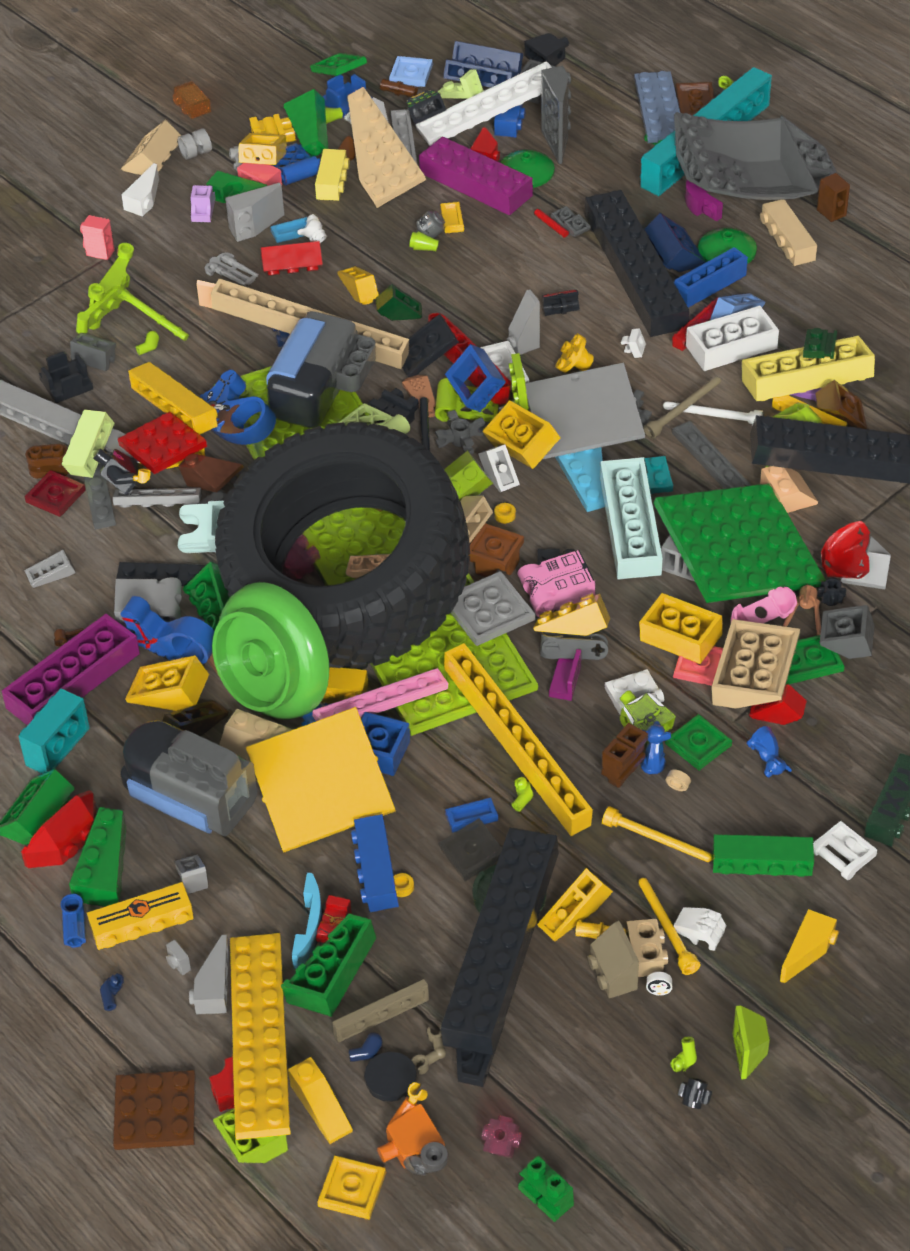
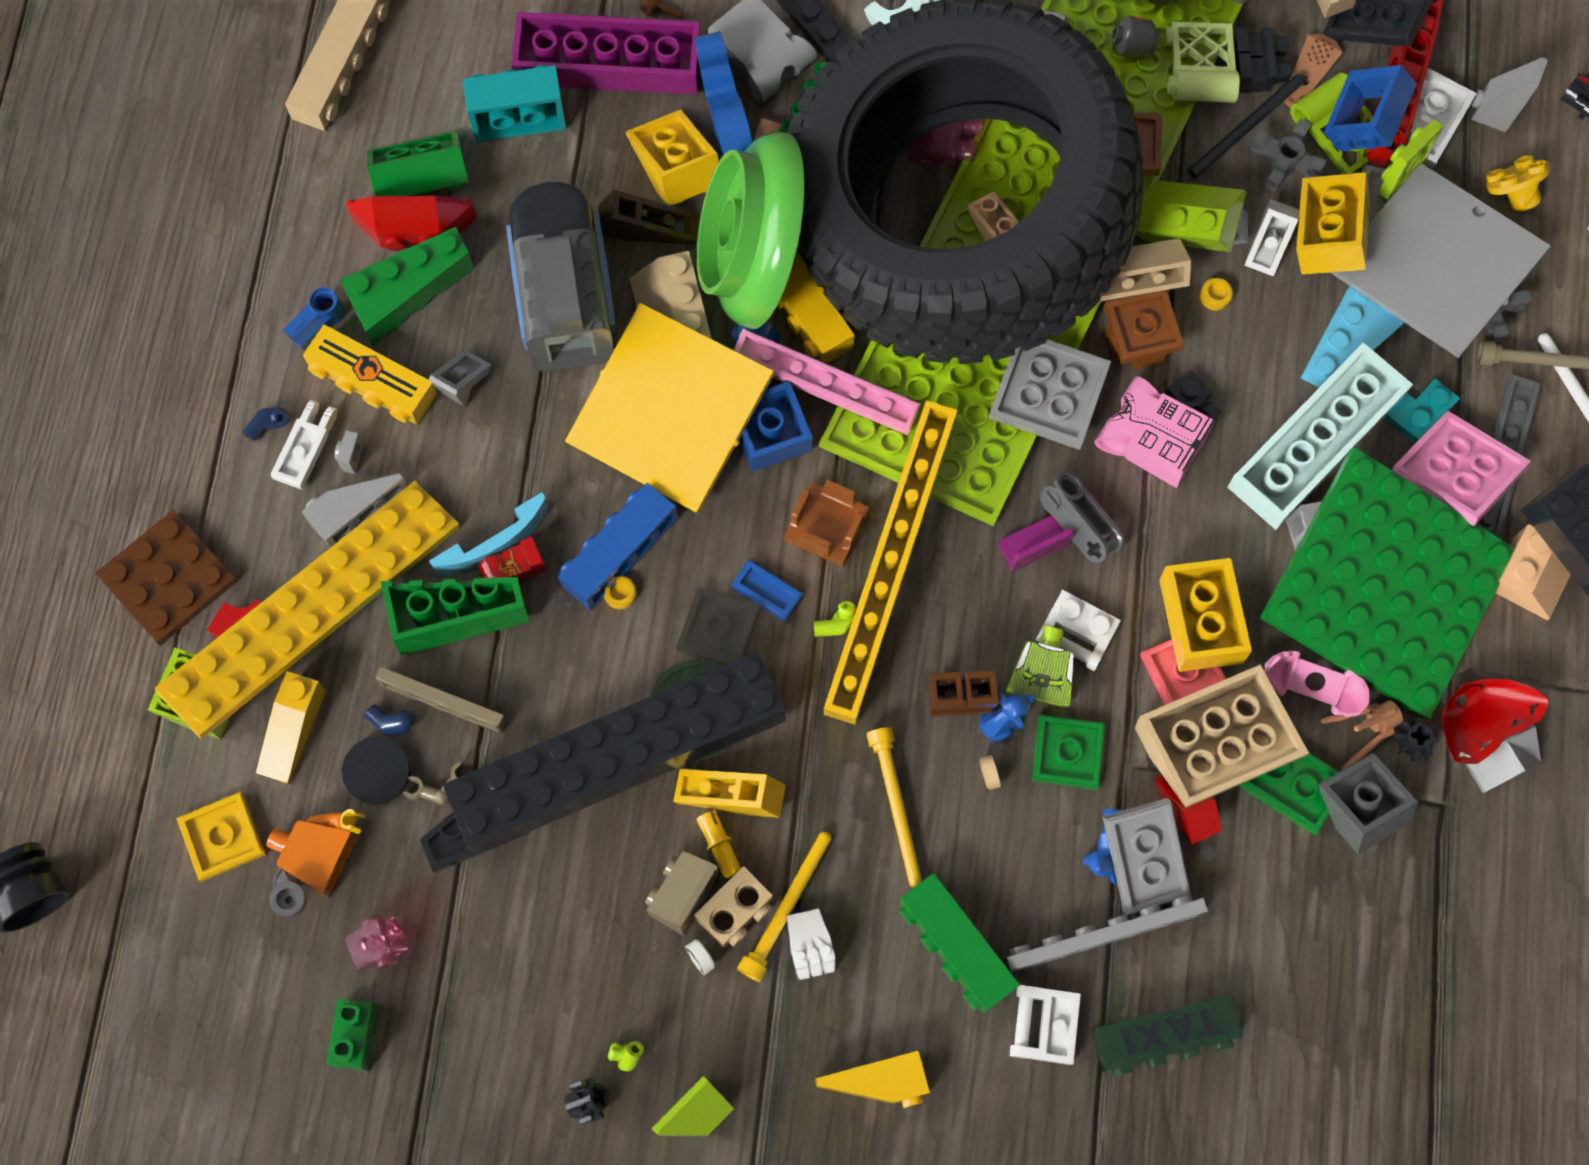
camera: 45 degrees right, 25 degrees up
(149, 981) = (303, 446): none -> white hinge
(460, 758) = (826, 521): none -> dark orange panel
(577, 618) = (1116, 492): yellow slope -> none
(705, 472) = (1462, 467): none -> bright pink plate
(791, 739) = (1146, 855): none -> light grey tile
(819, 784) = (1118, 929): none -> light grey plate

